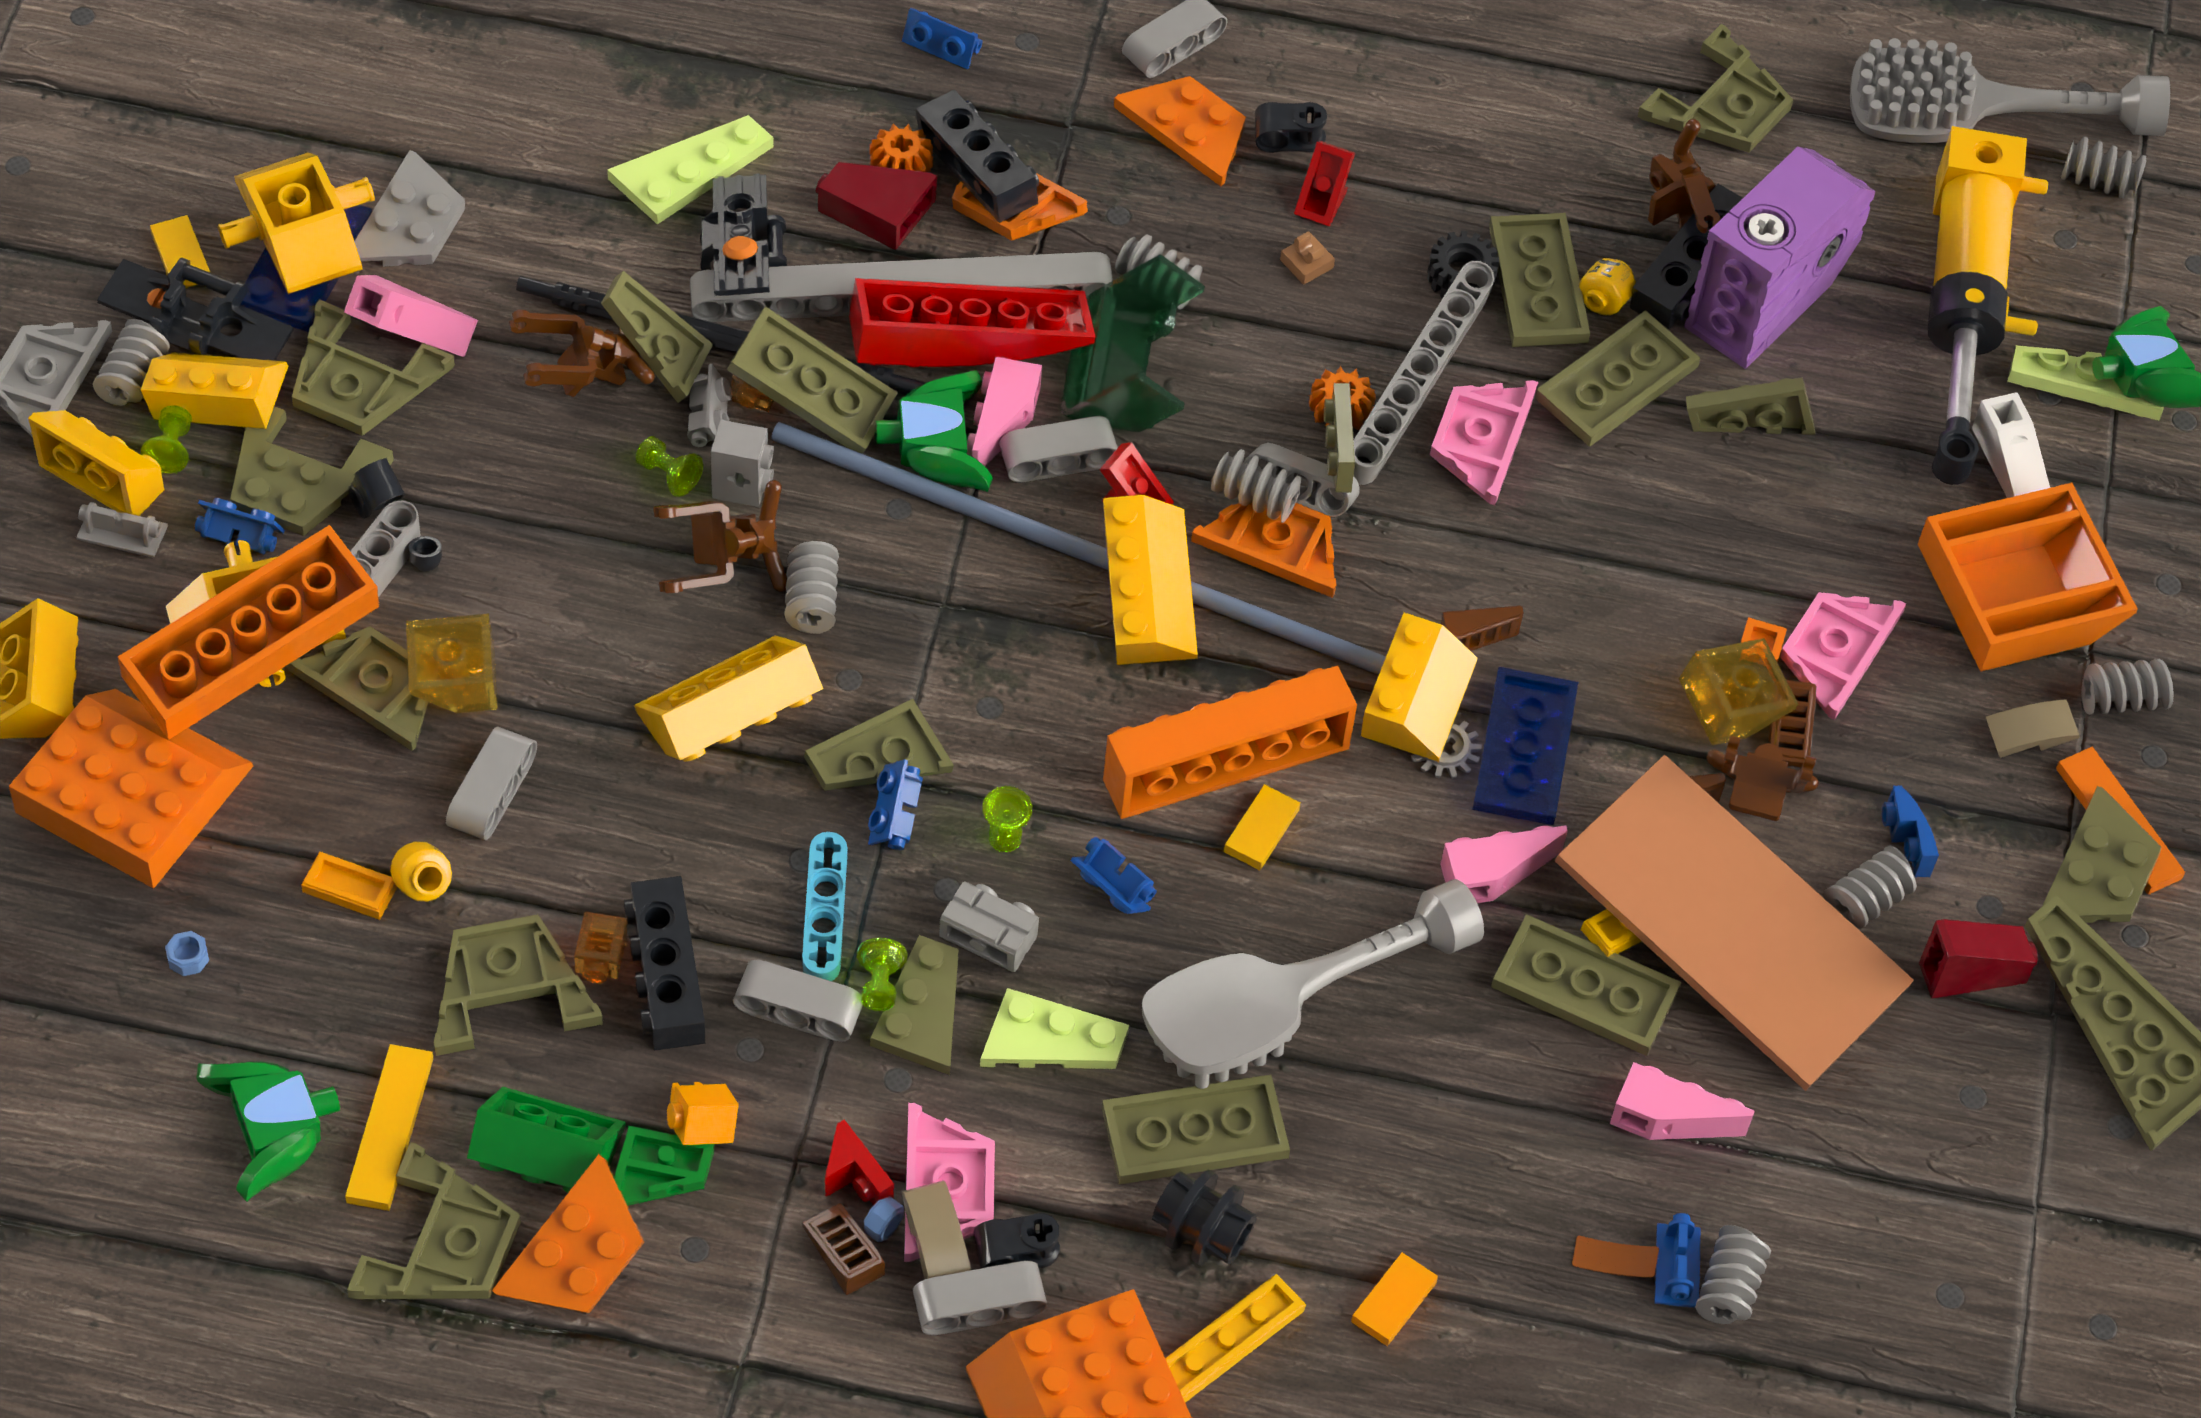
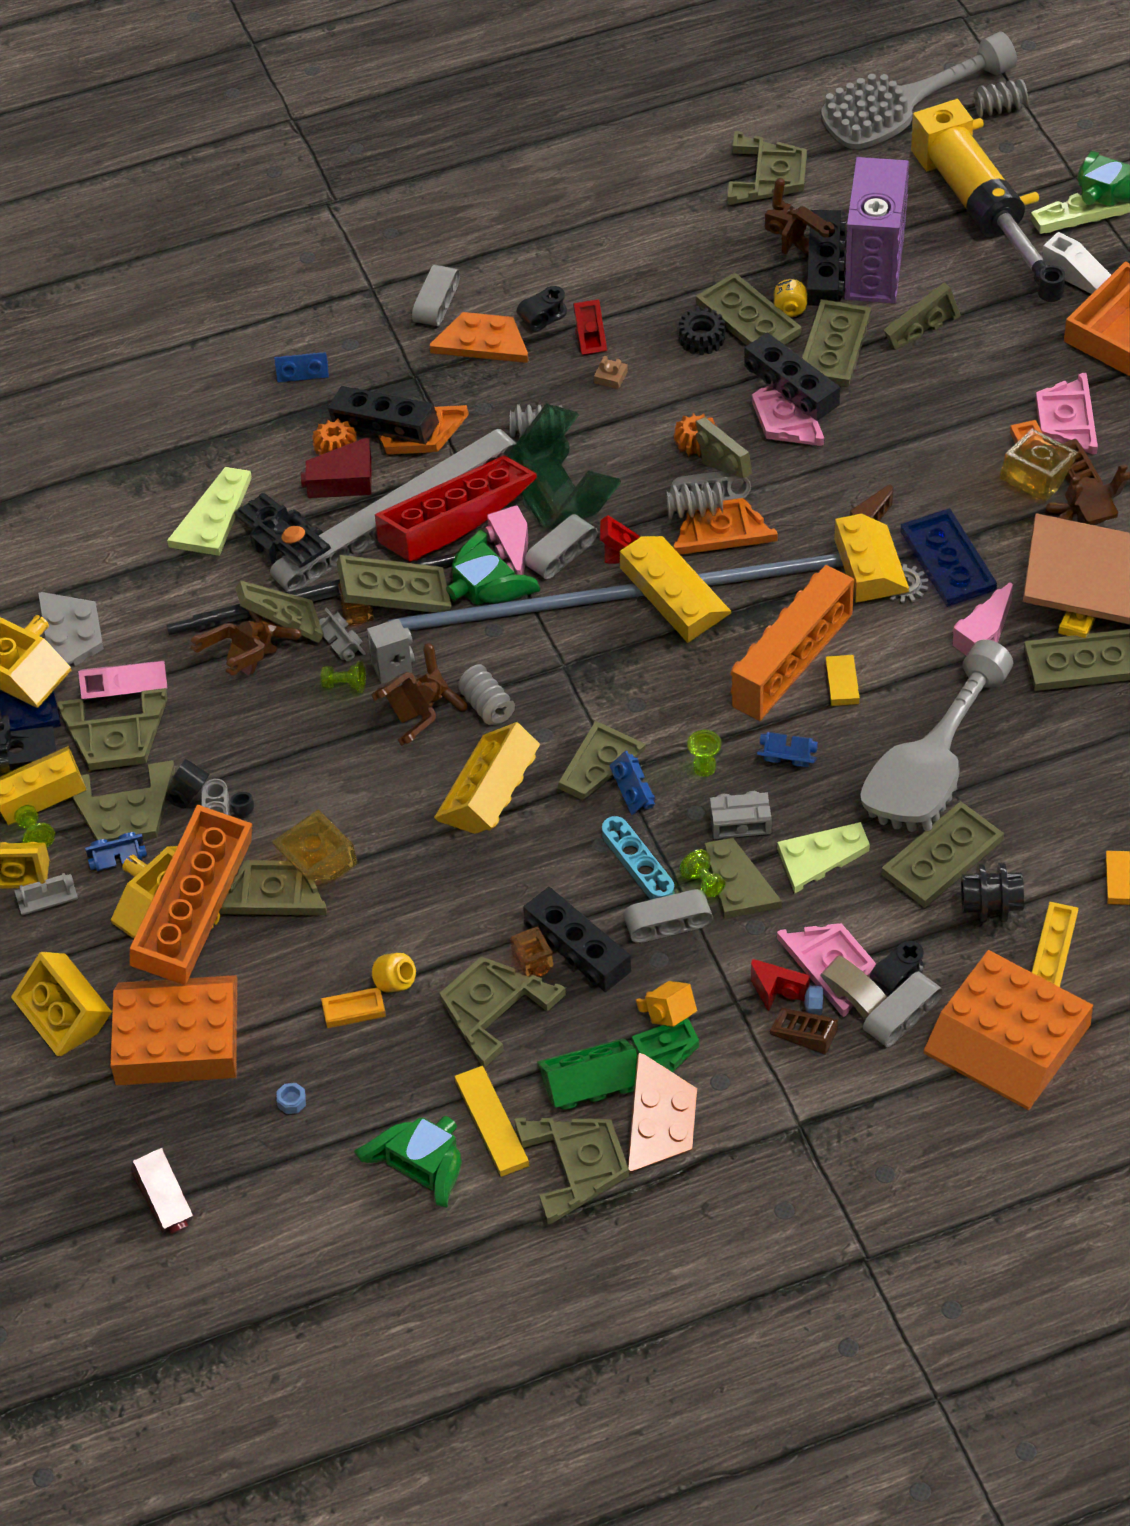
camera: 25 degrees left, 5 degrees down
(491, 783) = (391, 903): light grey beam -> none
(1425, 357) = (728, 380): light grey beam -> none
(1514, 392) = (792, 376): none -> black brick

